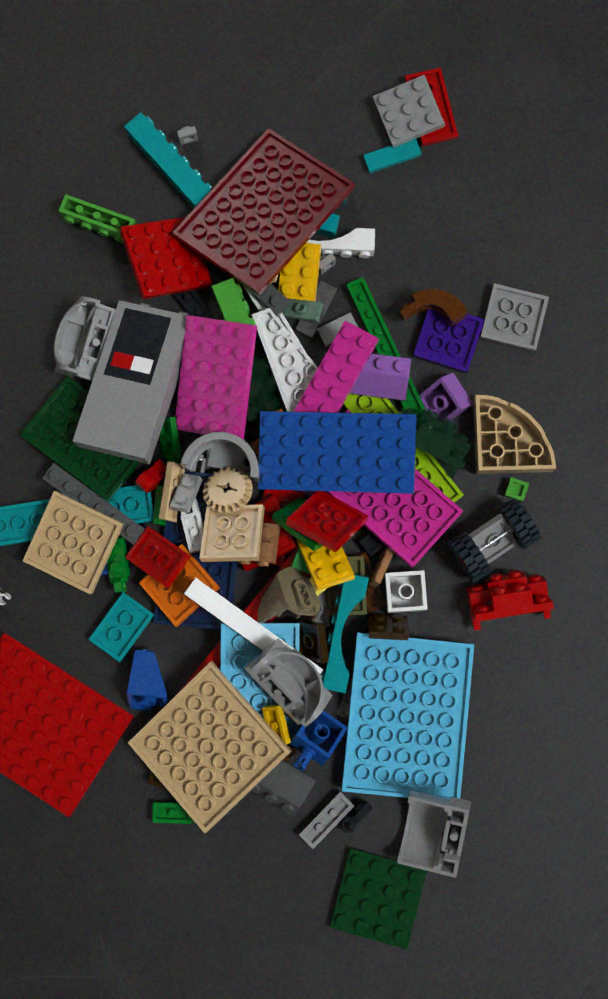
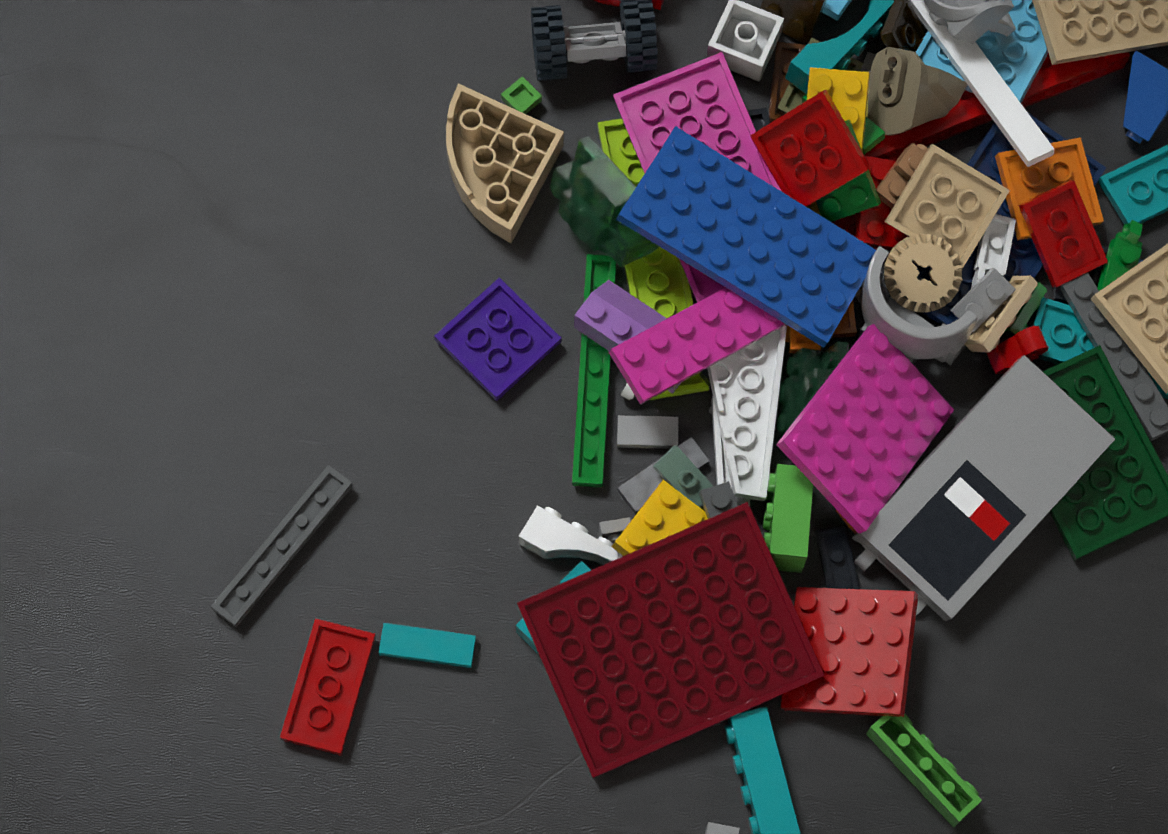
camera: 160 degrees left, 10 degrees down
(80, 339) = (1030, 593): light grey piece -> none
(170, 441) = (970, 386): green hinge -> none
(381, 567) = (762, 83): medium nougat tile -> none
(408, 111) = (368, 691): light grey plate -> none
(437, 300) = (492, 389): reddish brown arch -> none
(446, 397) = (550, 256): medium lavender slope -> none
(498, 166) = (281, 546): none -> dark grey plate
(514, 317) = (389, 320): light grey plate -> none

